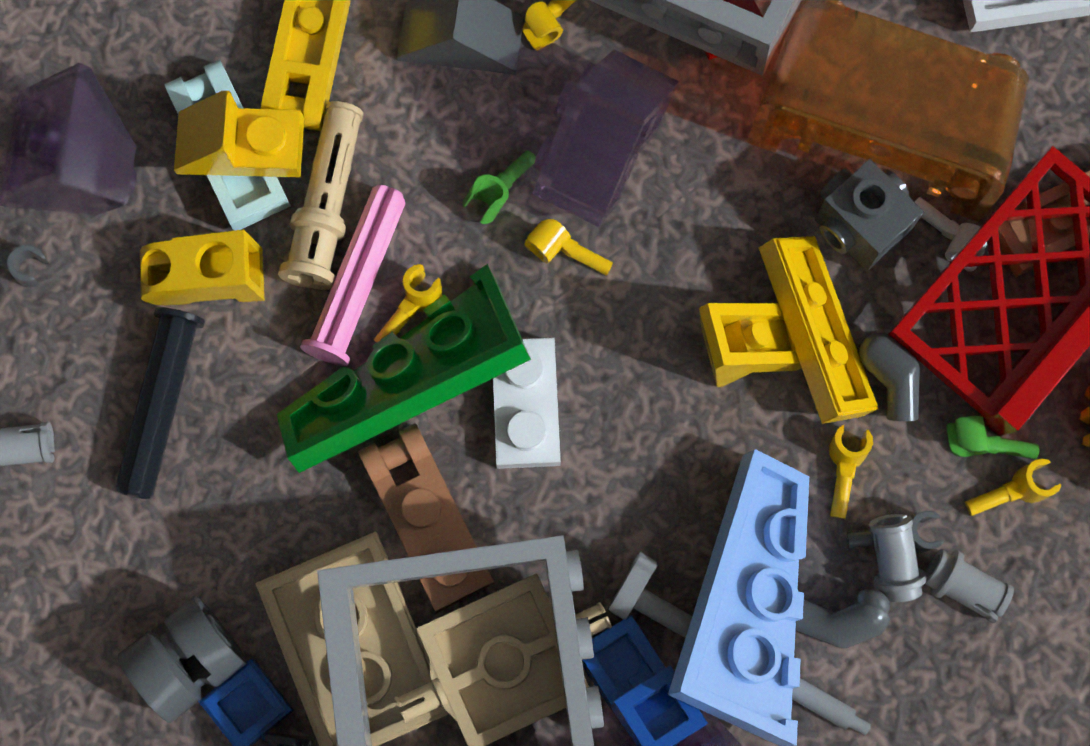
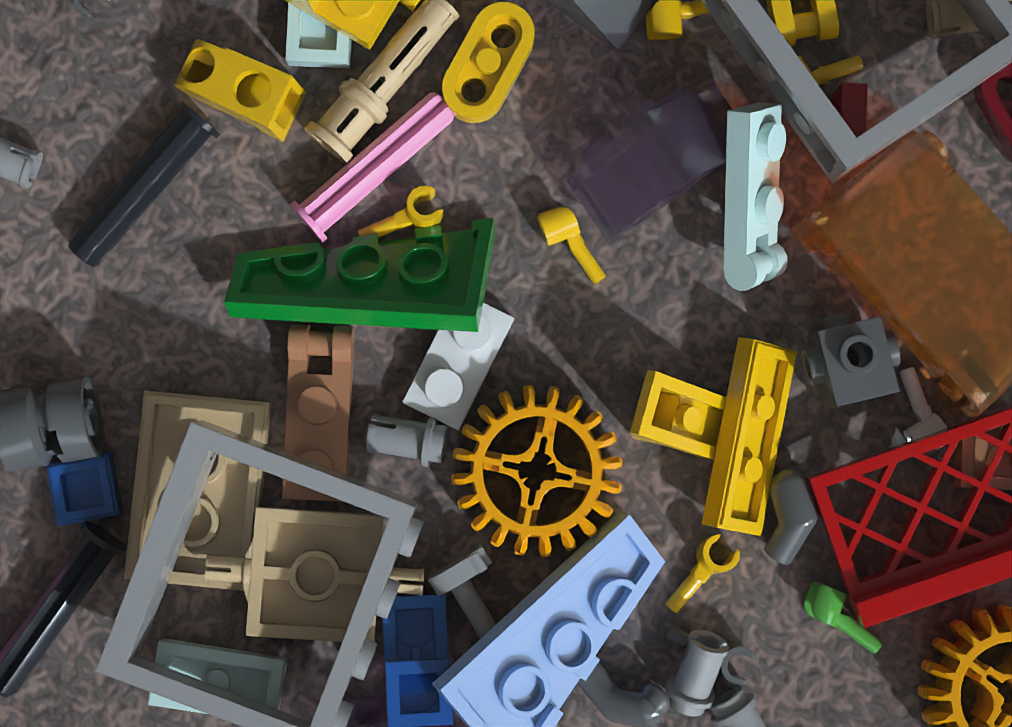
camera: 30 degrees right, 10 degrees up
(409, 139) = (487, 64): none -> yellow plate
(495, 188) = (538, 152): bright green hand -> none
(519, 494) = (408, 438): none -> light grey pin
(680, 446) = (590, 482): none -> light orange gear
(702, 120) = (753, 195): none -> light aqua plate
(1020, 487) = (836, 670): yellow hand -> none

